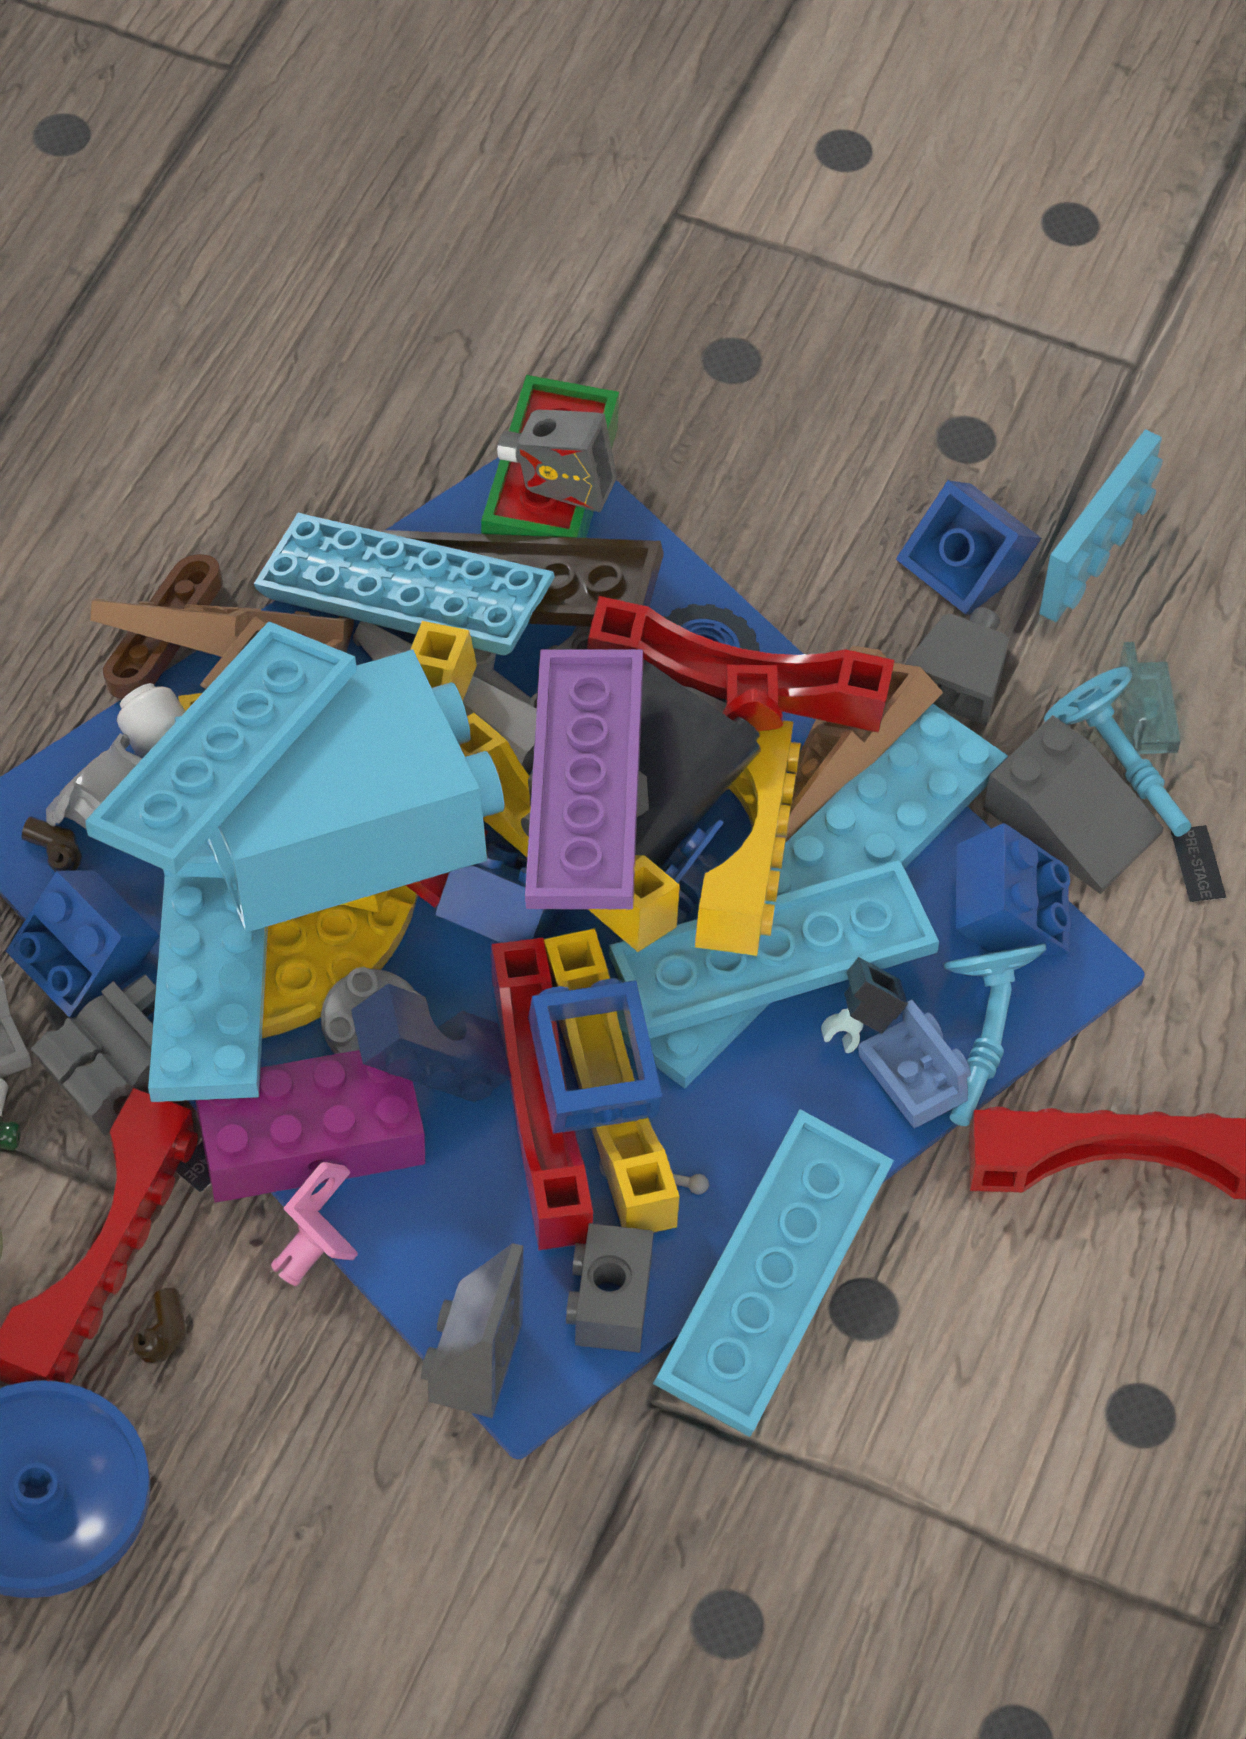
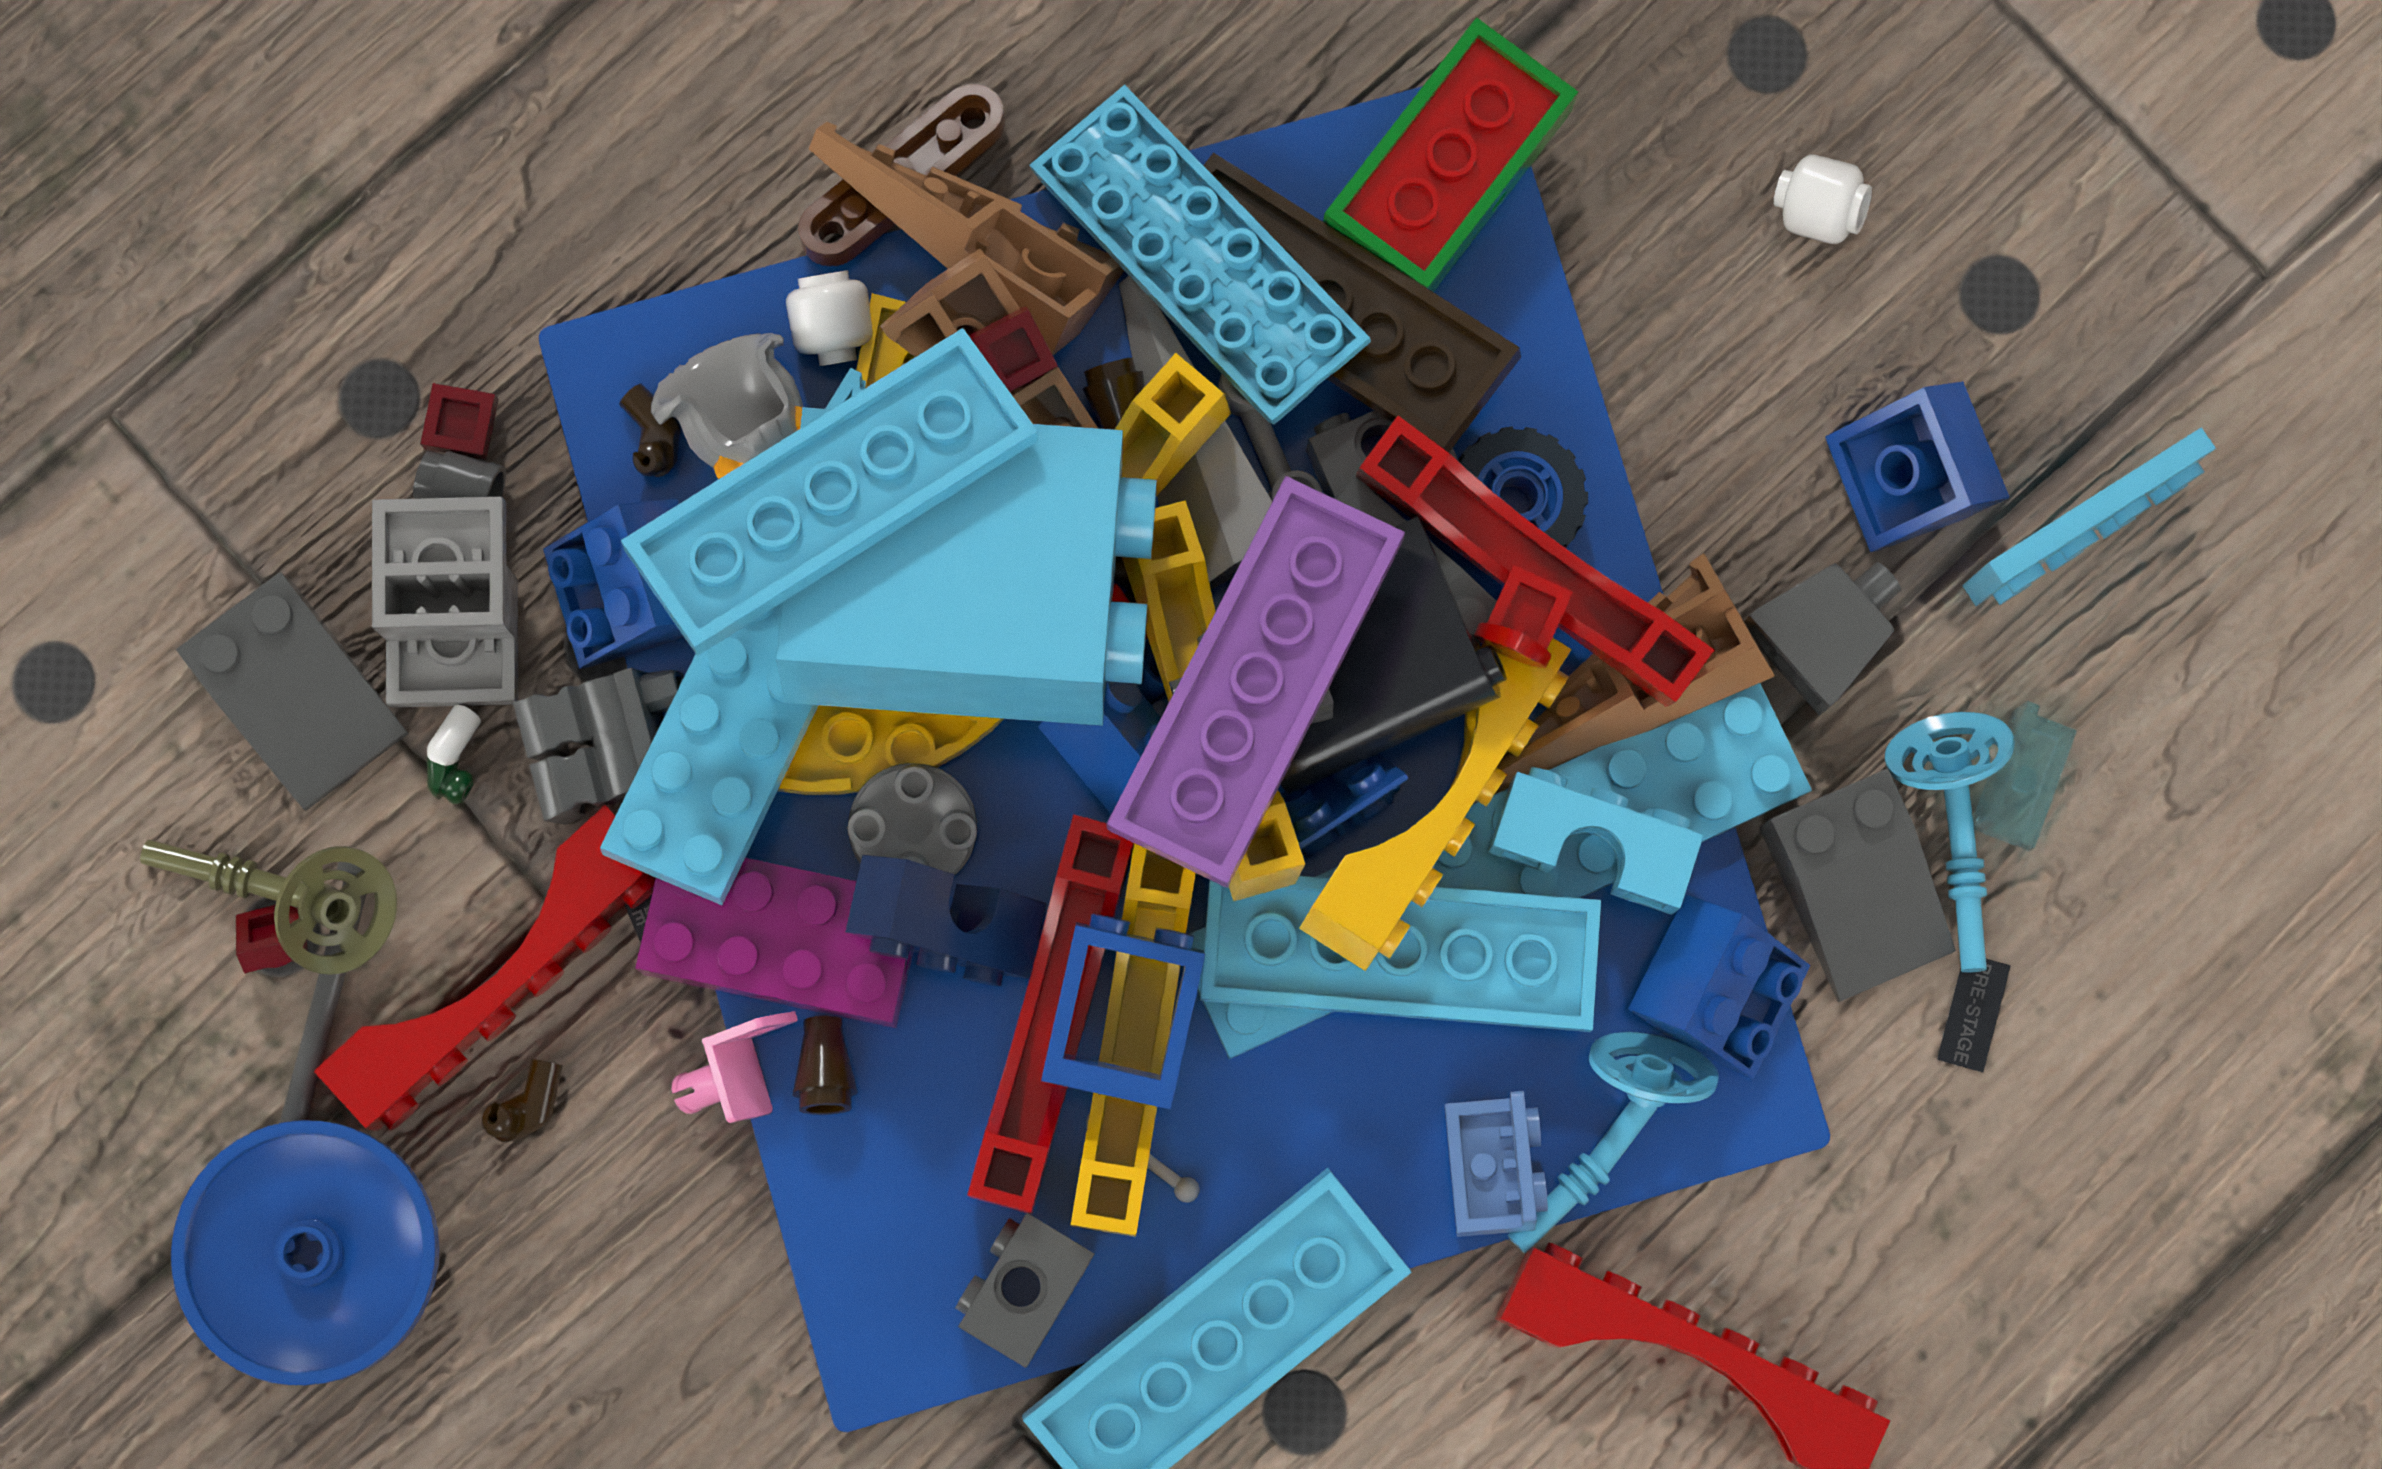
camera: 20 degrees right, 25 degrees up
(386, 1204) = (824, 1069): none -> dark brown cone
(477, 1336) = (837, 1299): dark grey slope -> none
(564, 456) = (1452, 181): dark grey torso -> none
(816, 418) = (1823, 199): none -> white head
(871, 1000) = (1480, 1070): black piece -> none
(913, 817) = (1651, 852): none -> medium azure arch

